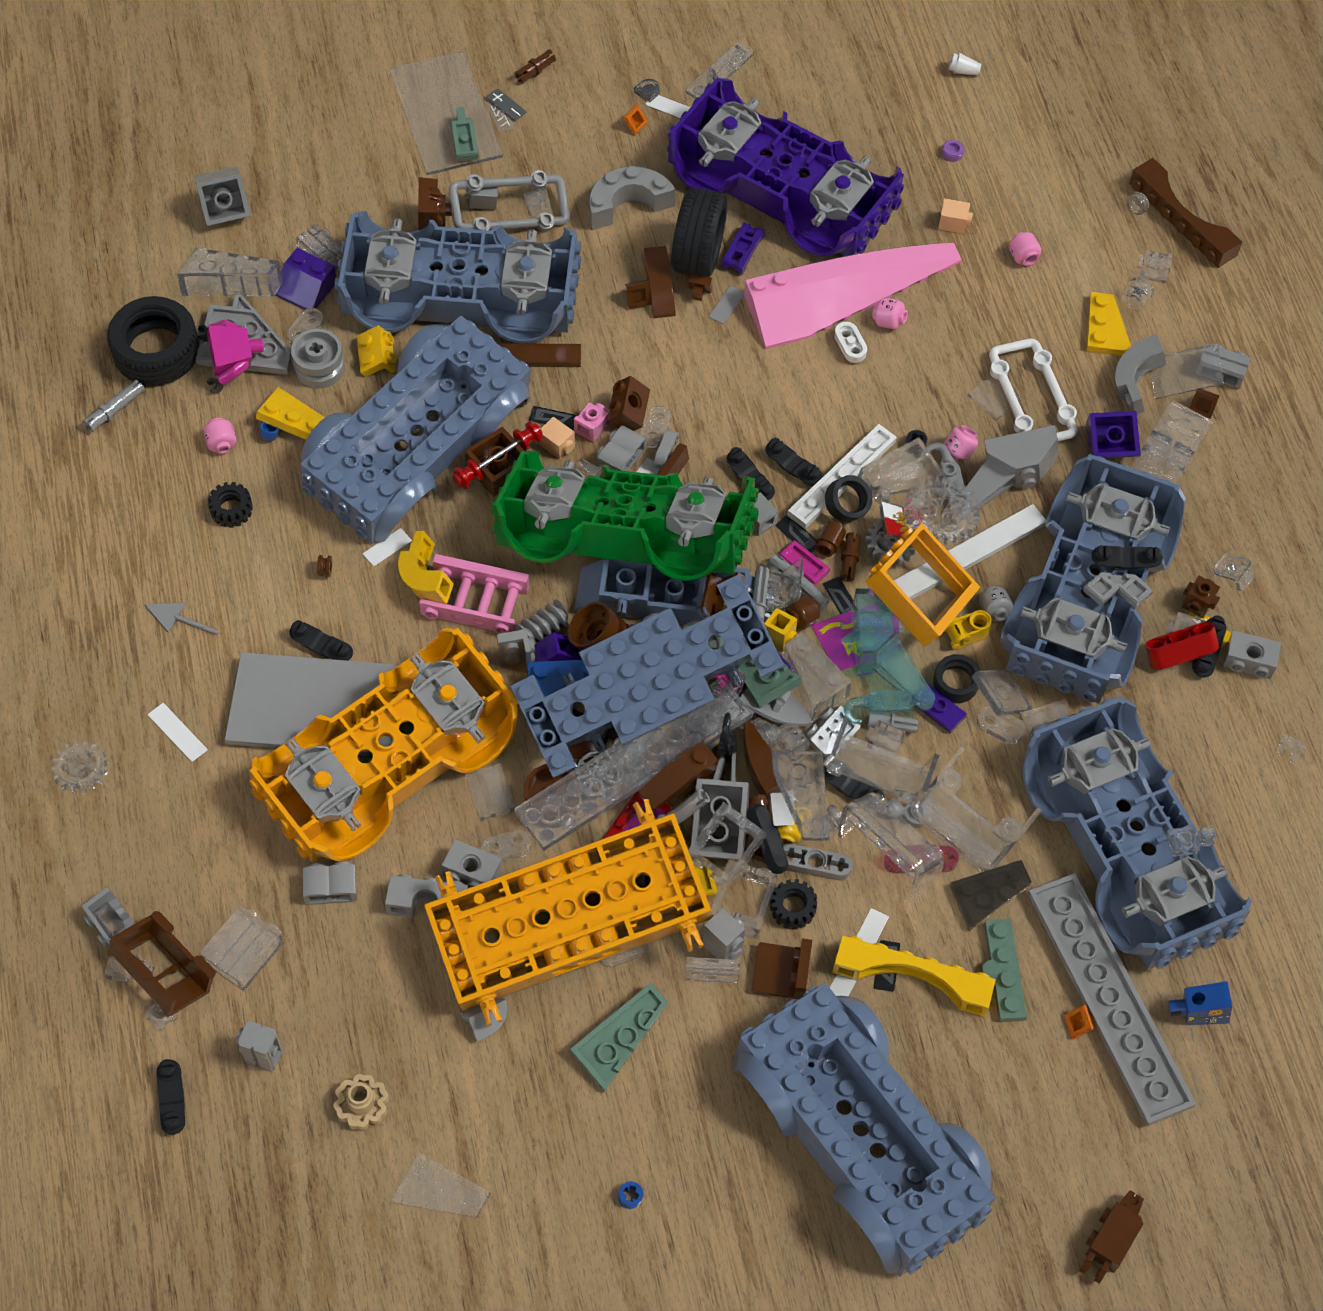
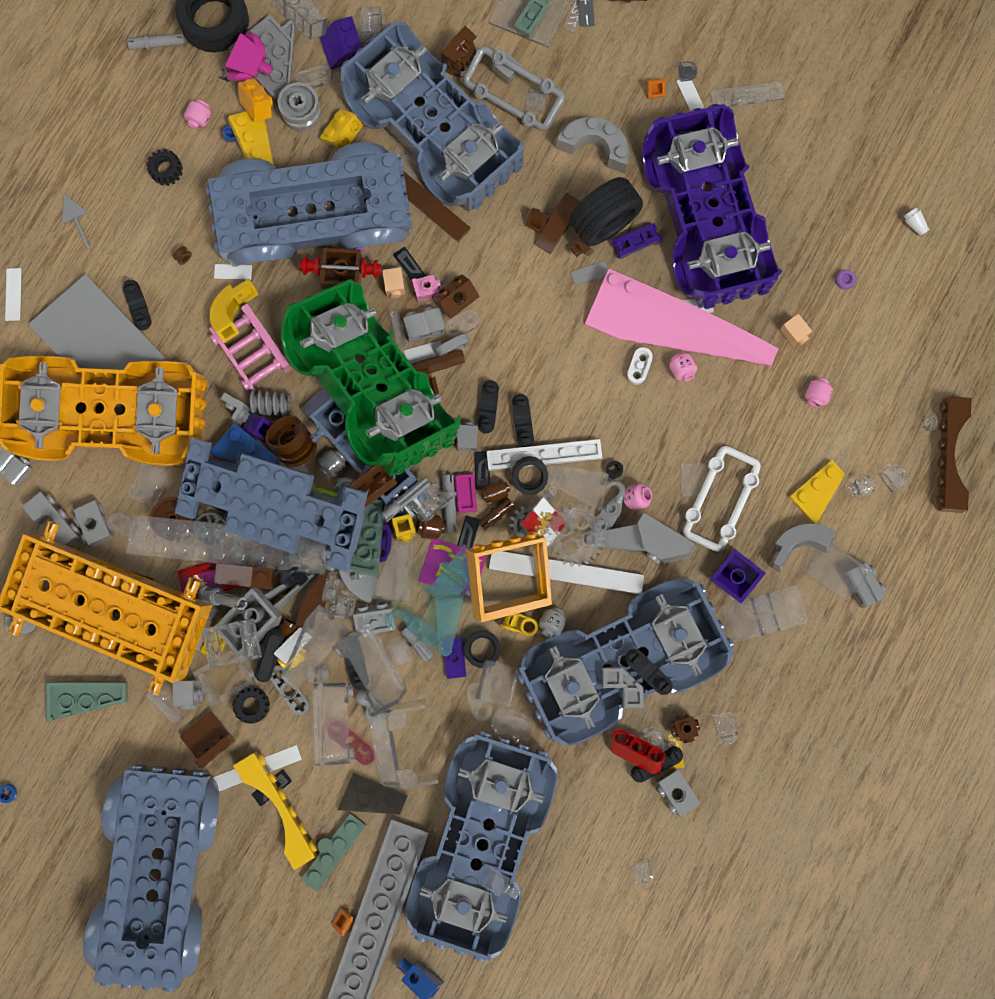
camera: 40 degrees right, 20 degrees up
(270, 379) = (255, 100): none -> light orange brick
(1204, 402) = (824, 600): reddish brown tile -> none

